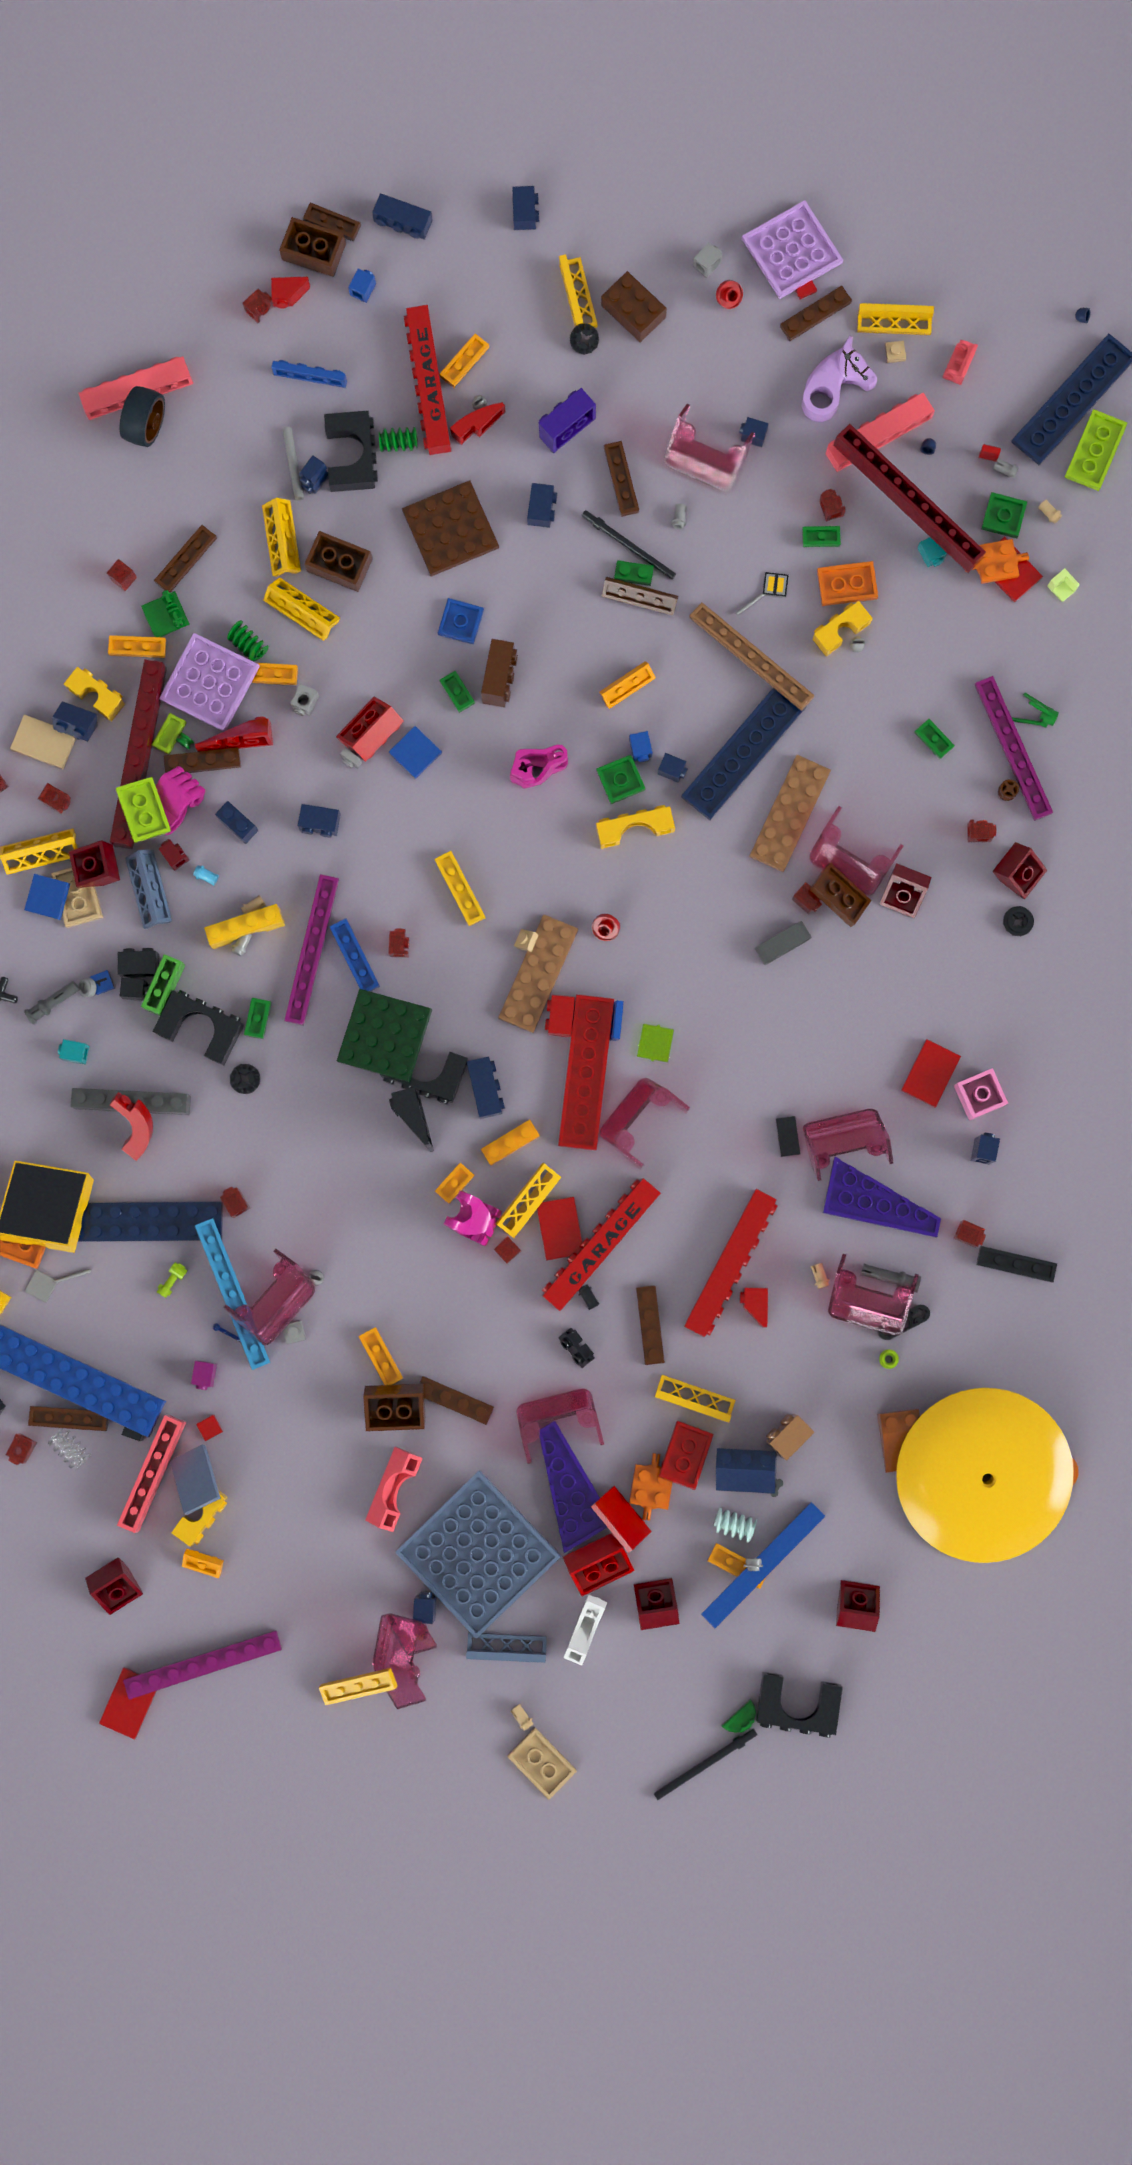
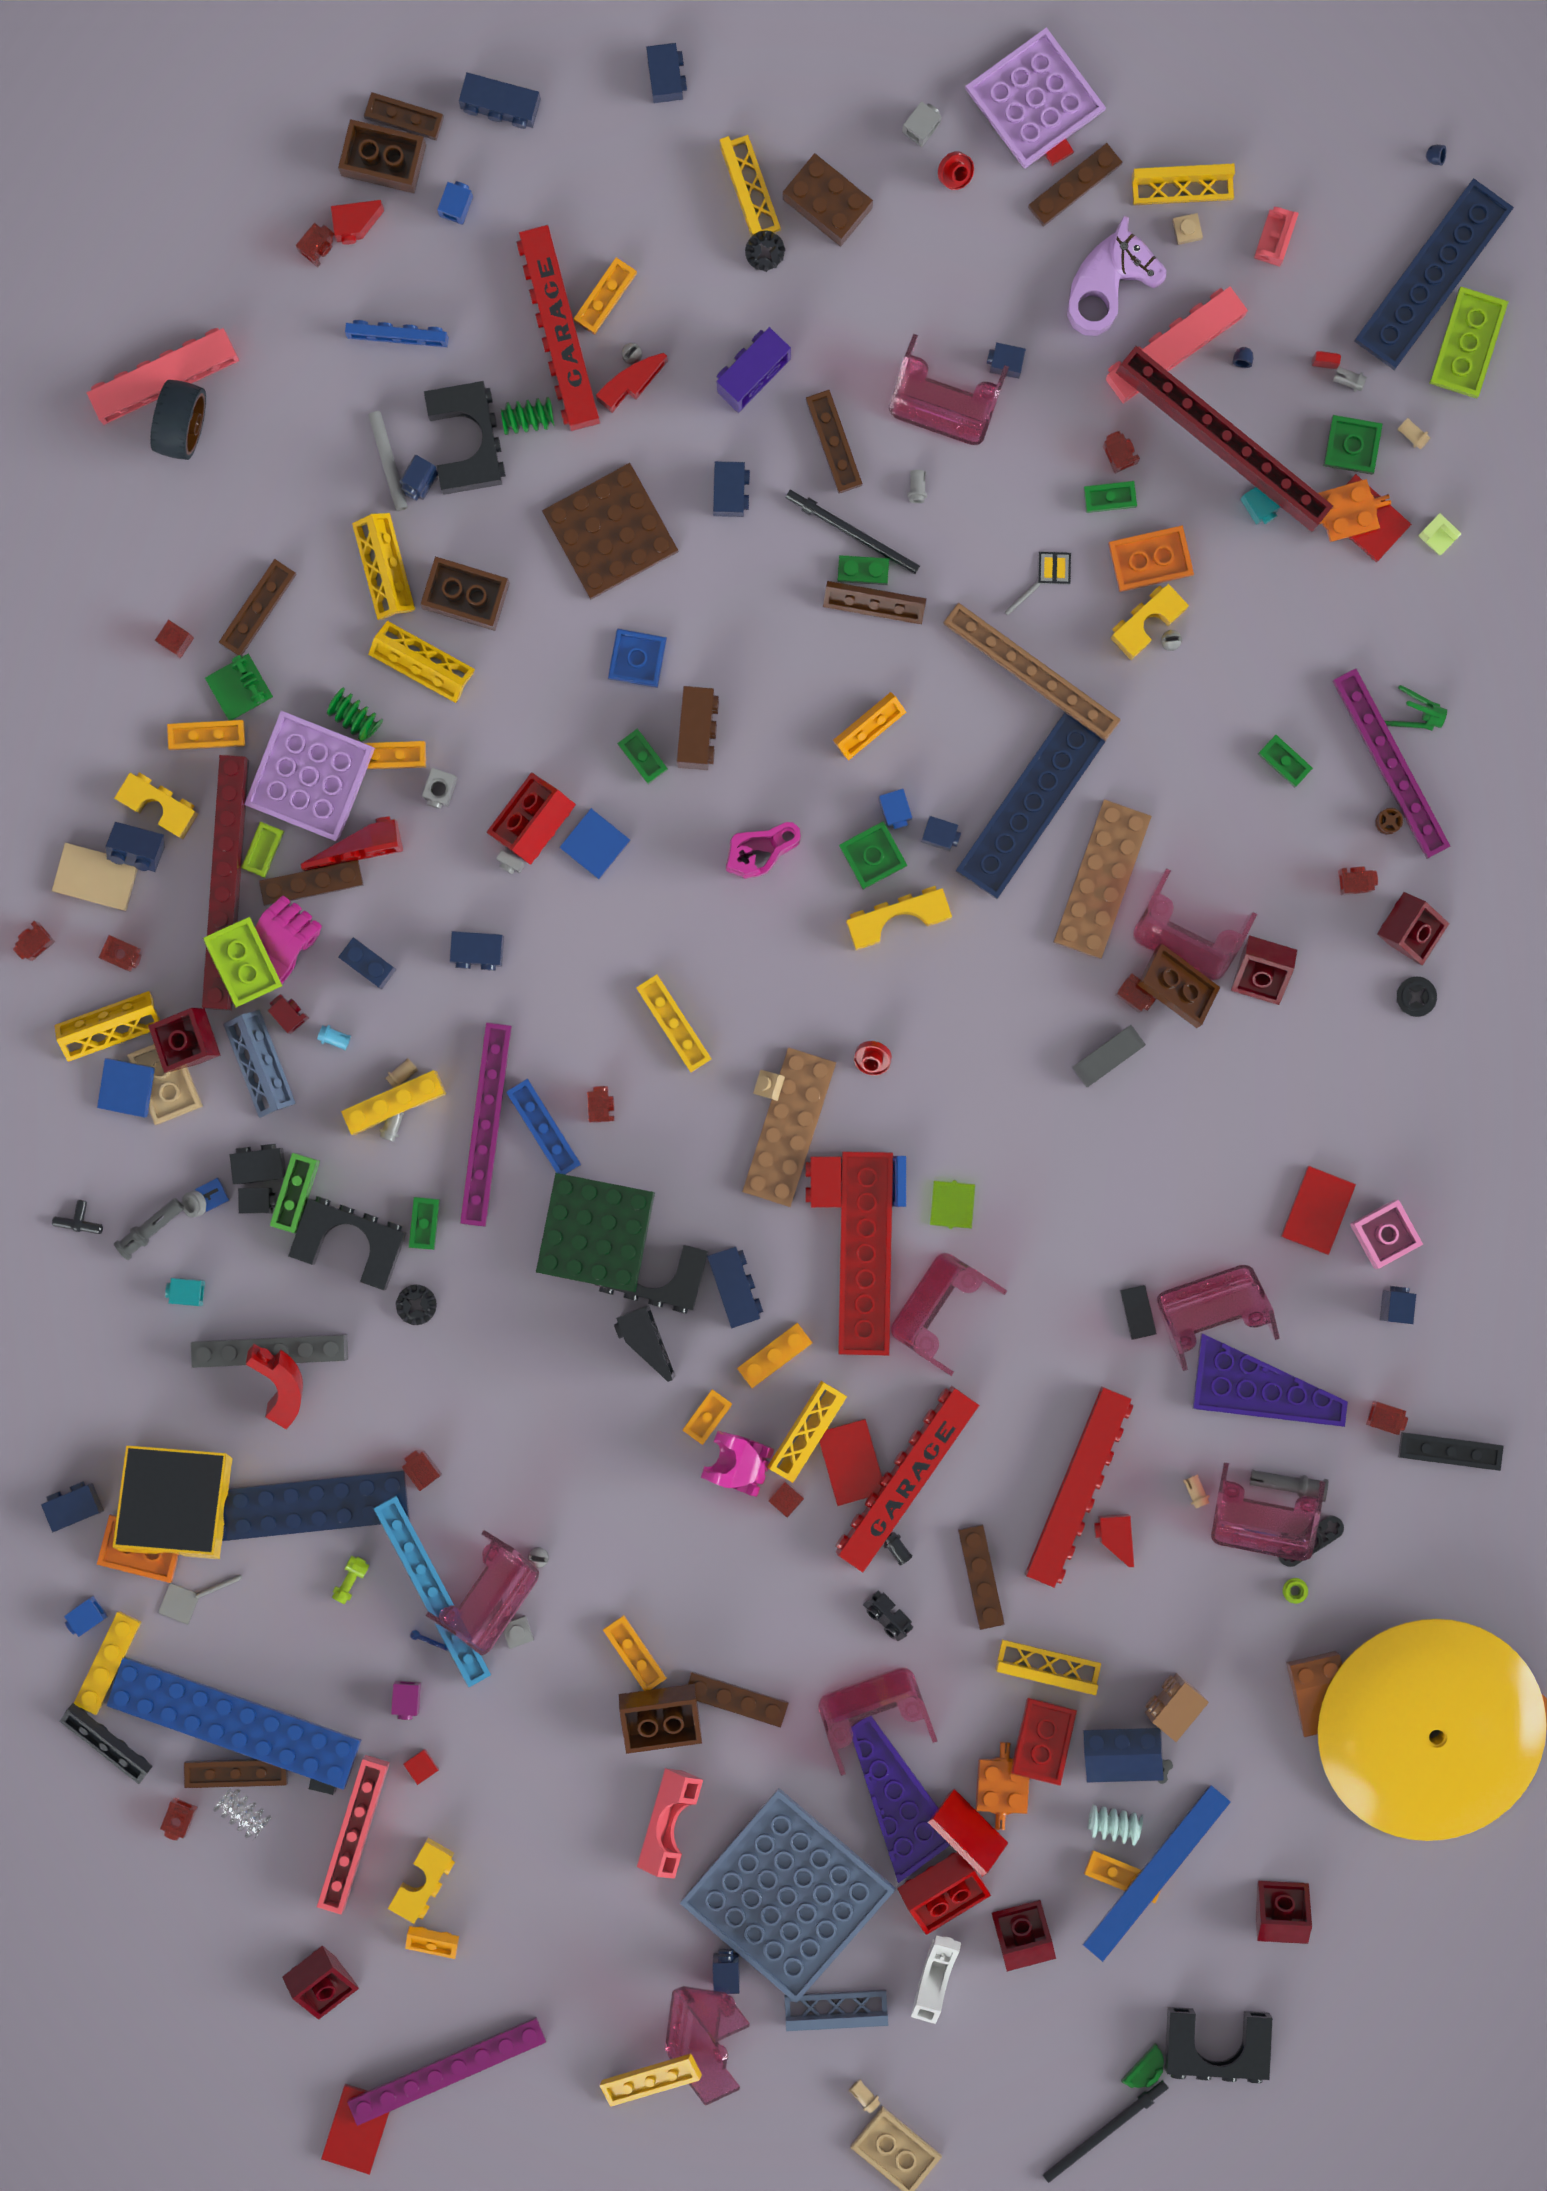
camera: 10 degrees left, 5 degrees up
(185, 741) = (285, 858): green bush -> none
(195, 1479) = (410, 1837): sand blue tile -> none
(753, 1564) = (1144, 1874): light grey plate -> none

